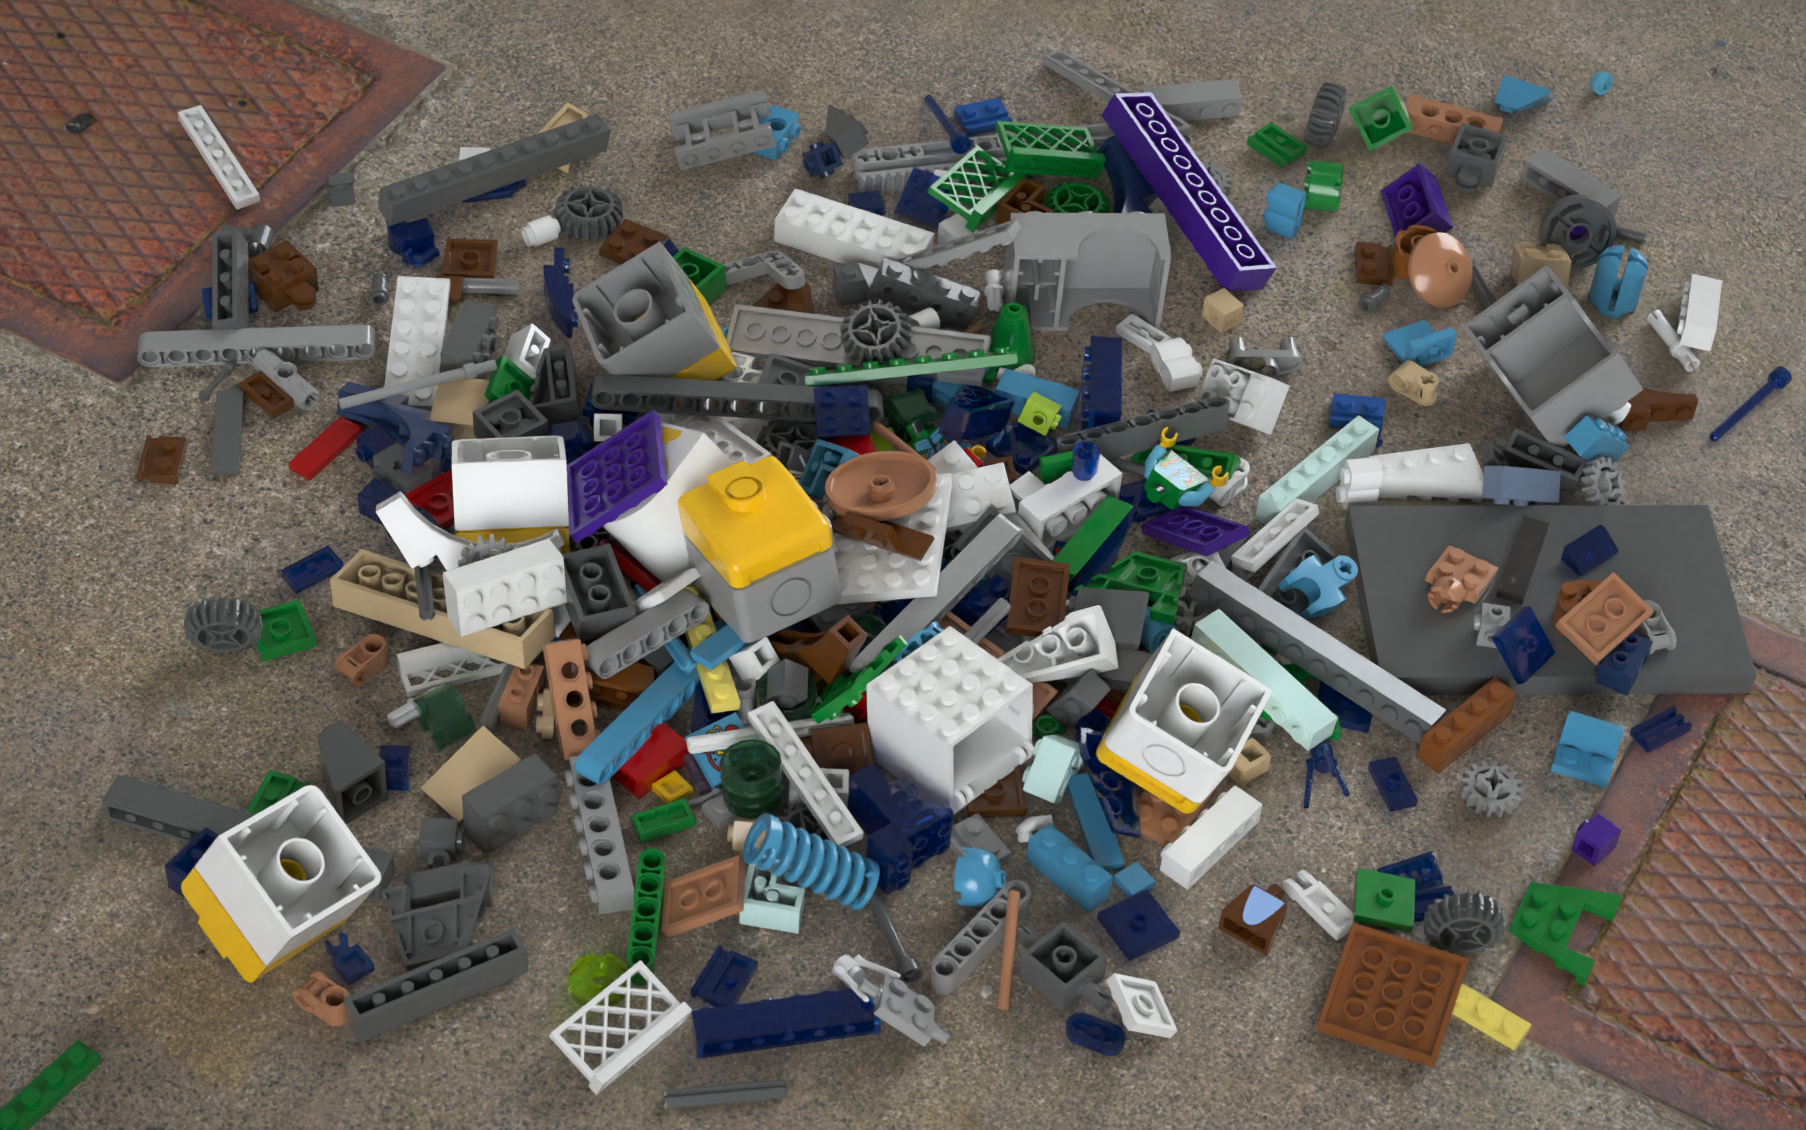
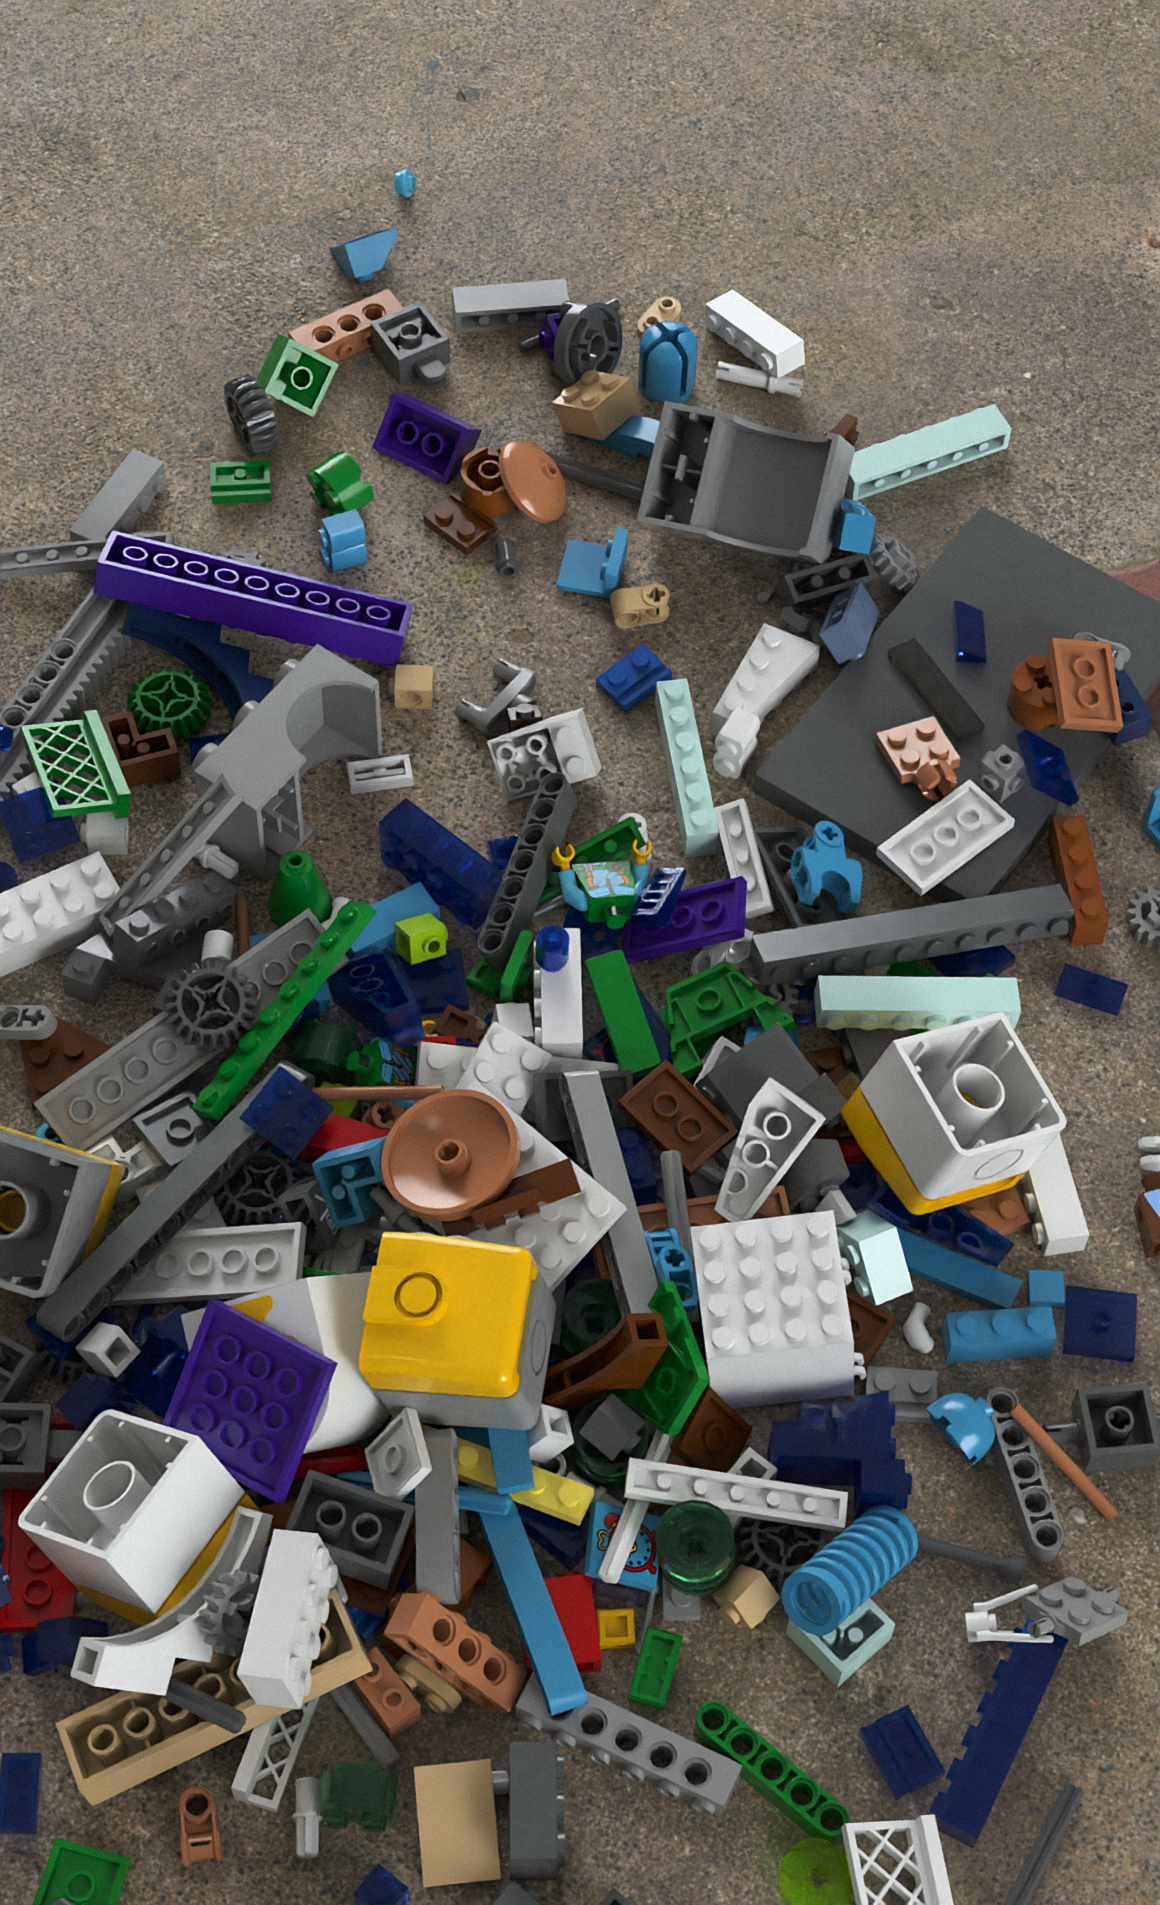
camera: 50 degrees left, 10 degrees up
(703, 896) = (801, 1699): nougat plate -> none
(1048, 159) = (106, 678): green fence -> none
(1068, 724) = (836, 1201): none -> white tile
(1175, 364) = (447, 776): white brick -> none
(1192, 508) = (664, 906): none -> clear blue slope
(1323, 761) = (1029, 1024): clear blue plant -> none
(1409, 625) = (945, 837): none -> white plate
(1663, 266) = (662, 309): none -> tan plate
(1720, 456) = (927, 451): none -> light aqua brick
(1777, 379) = (869, 343): clear blue piece -> none

